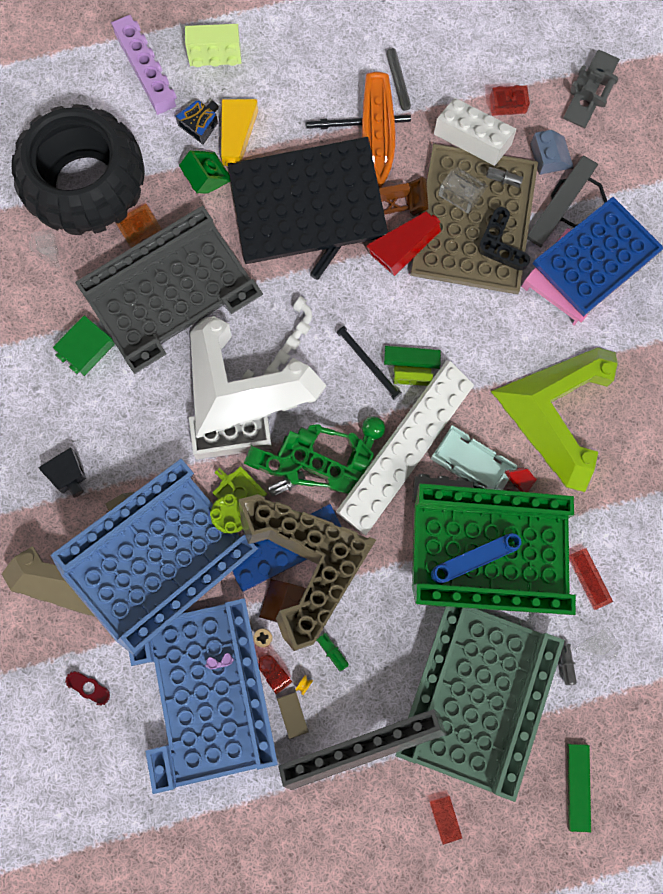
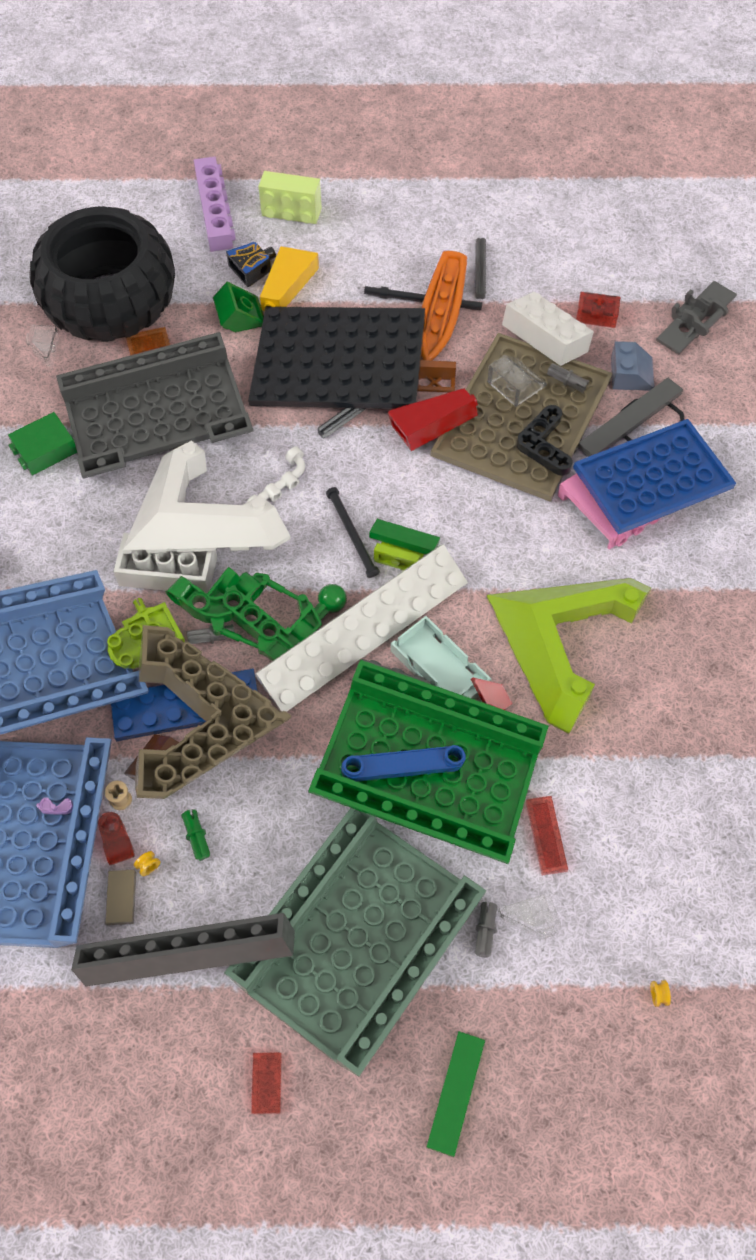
camera: 20 degrees right, 15 degrees down
(418, 196) = (465, 376): reddish brown tile -> none

